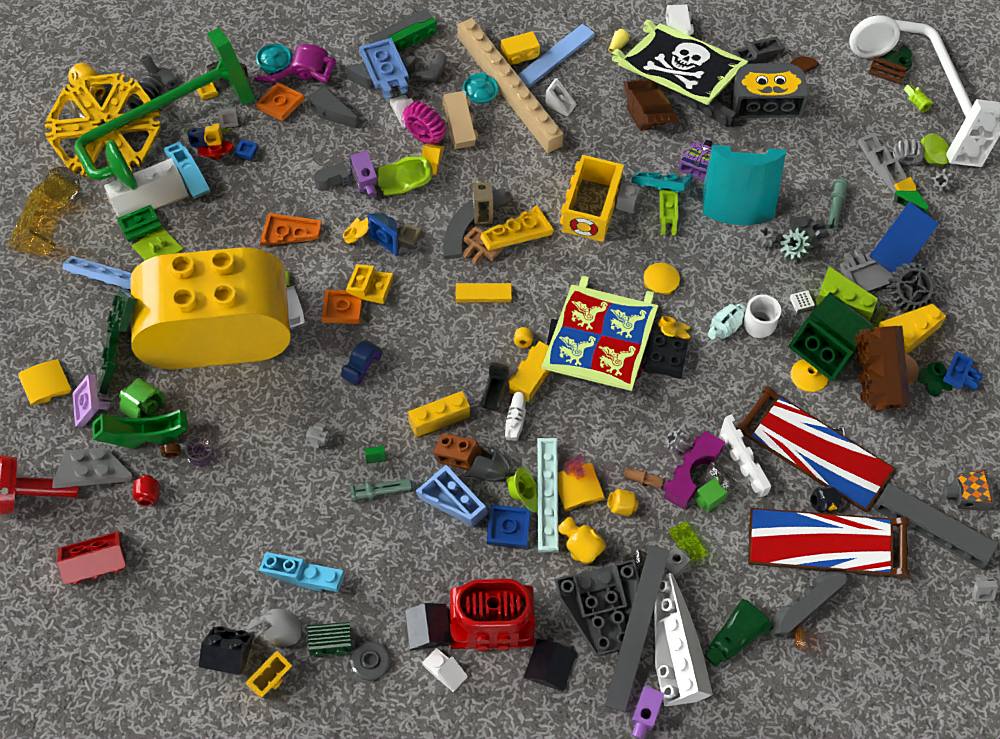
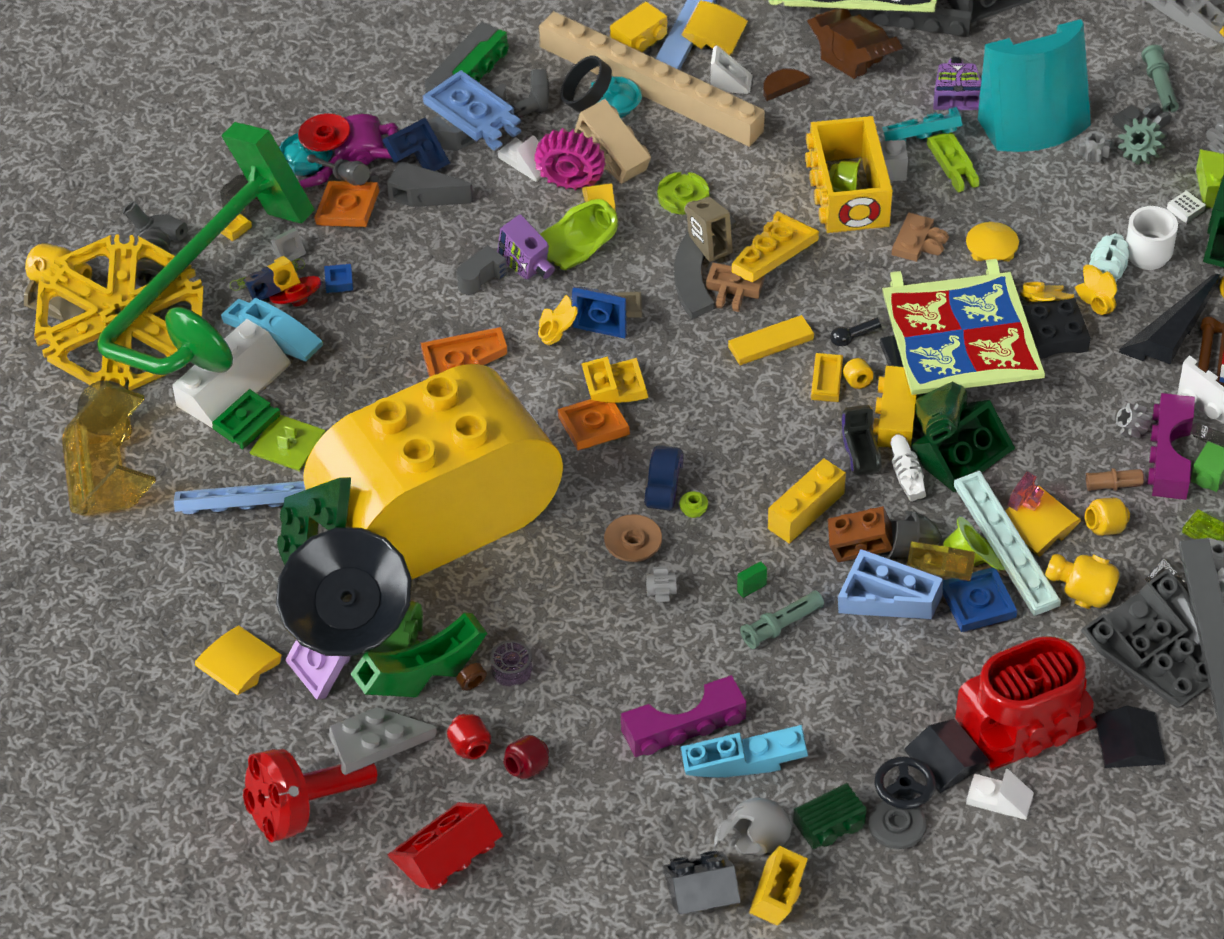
camera: 20 degrees left, 10 degrees down
(90, 364) = (337, 566): none -> black dish
(171, 519) = (526, 757): none -> dark red head
(286, 49) = (324, 132): none -> red dish
(289, 82) = (352, 171): none -> dark grey piece
(305, 533) = (651, 730): none -> magenta arch
(319, 389) = (631, 529): none -> medium nougat dish
(342, 76) = (421, 141): none -> dark blue plate
(371, 391) = (693, 509): none -> lime plate
(391, 643) = (898, 790): none -> black piece
(470, 79) = (576, 74): none -> black tyre
(492, 172) = (673, 194): none -> lime tile
(493, 493) = (941, 560): none -> clear yellow brick
(503, 332) = (827, 377): none -> yellow tile
(530, 307) = (843, 336): none -> black bar
(550, 389) = (941, 411): none -> dark green piece
(561, 414) = (973, 448): none -> dark green slope
(569, 63) = (714, 26): none -> yellow slope
(588, 199) = (844, 175): none -> lime piece
(592, 116) = (782, 82): none -> reddish brown tile
(613, 255) = (919, 236): none -> medium nougat hinge
(706, 340) = (1098, 290): none -> yellow plate
(736, 387) = (1166, 333): none -> black wedge

